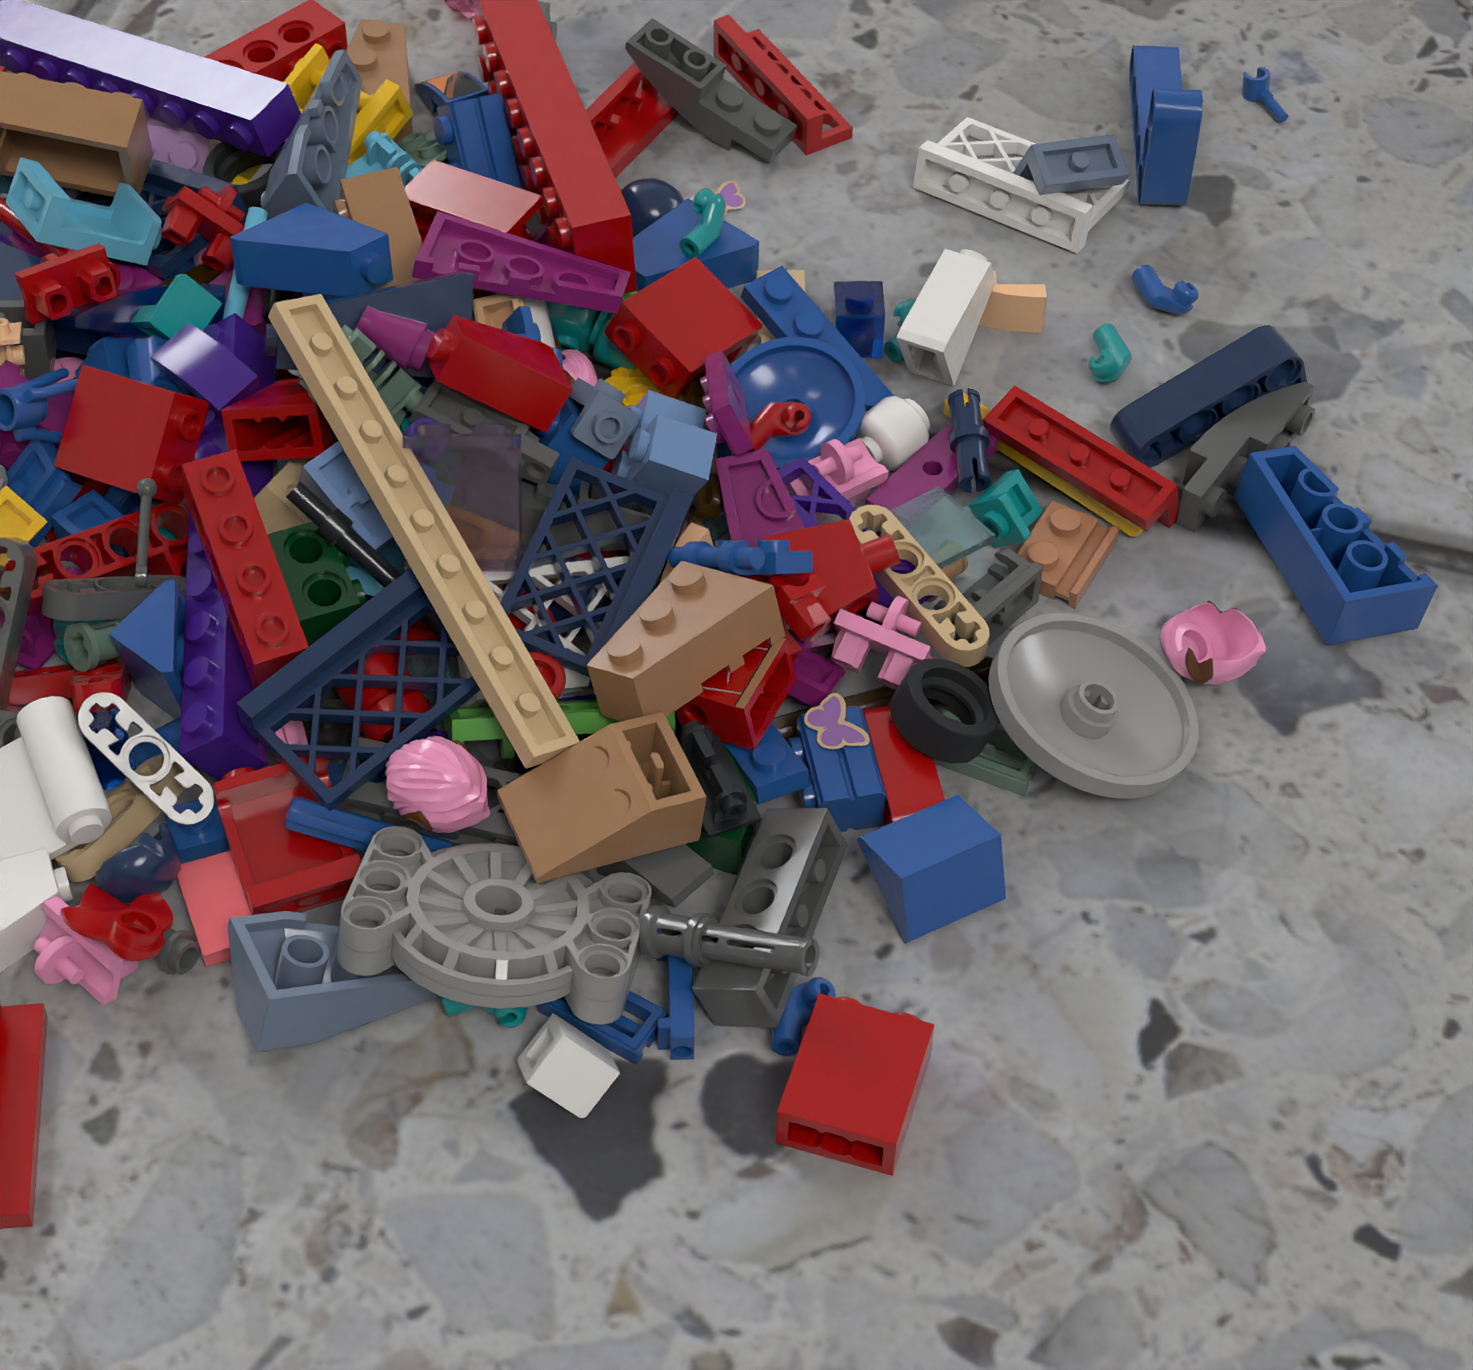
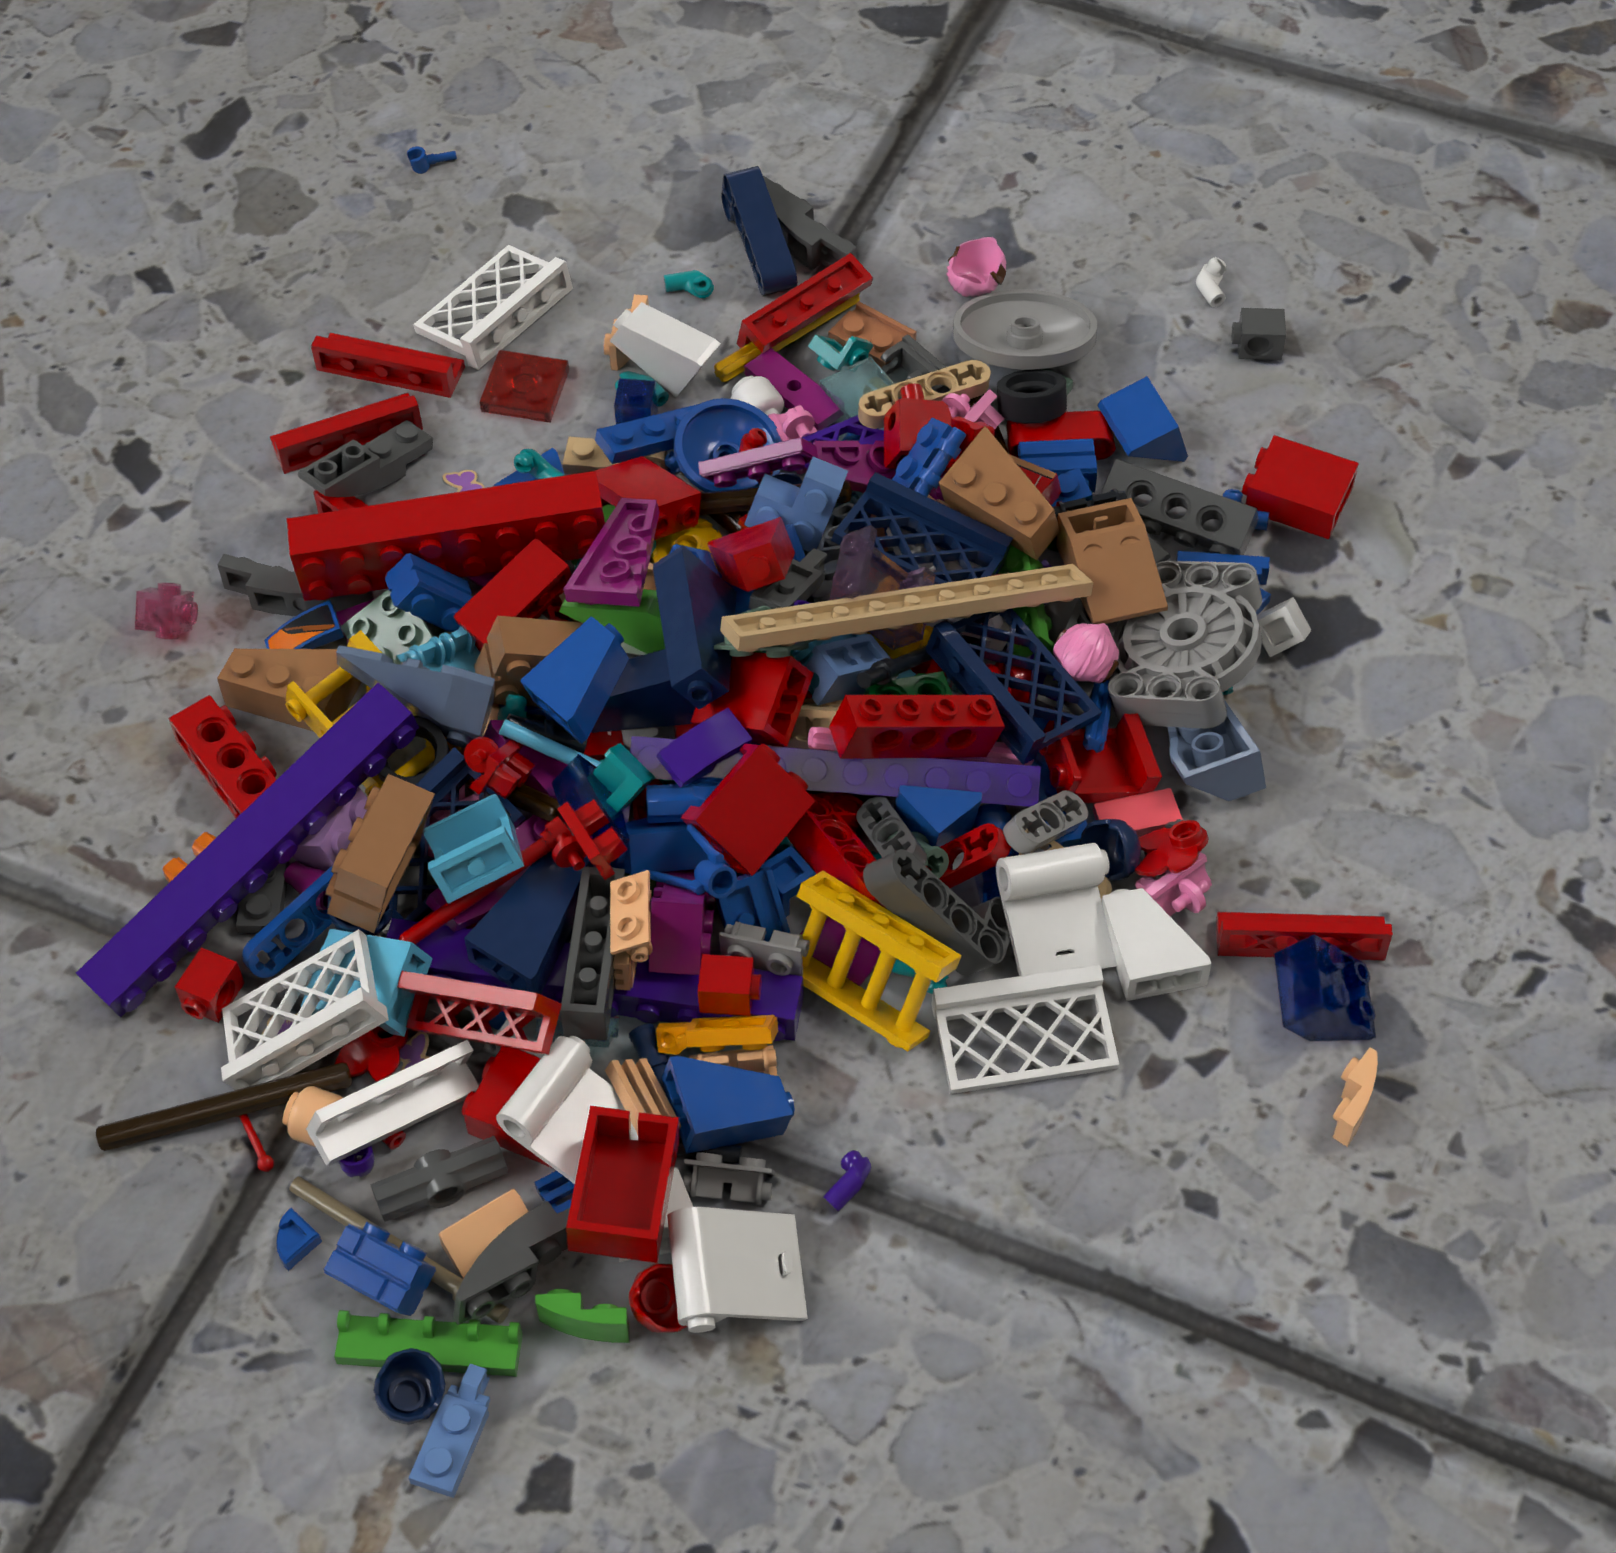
camera: 80 degrees left, 5 degrees up
(146, 490) = (879, 815): dark grey hinge -> none
(399, 337) = (729, 599): magenta cone -> none
(604, 420) = (791, 515): sand blue bracket -> none
(707, 940) = (1216, 530): dark grey pin -> none
(831, 726) = (1040, 454): medium lavender sticker -> none
(884, 100) = (387, 364): none -> red fence
(889, 227) = (524, 386): none -> clear red plate
(969, 440) = (783, 355): dark blue pin -> none
(1074, 164) = (514, 258): sand blue panel -> none
(1160, 297) = (634, 248): blue arm -> none
(1164, 125) = (467, 218): blue beam -> none
(1178, 1018) = (1260, 333): none -> dark grey brick
(1289, 951) = (1209, 279): none -> white arm
(1327, 552) = (903, 200): blue wedge -> none

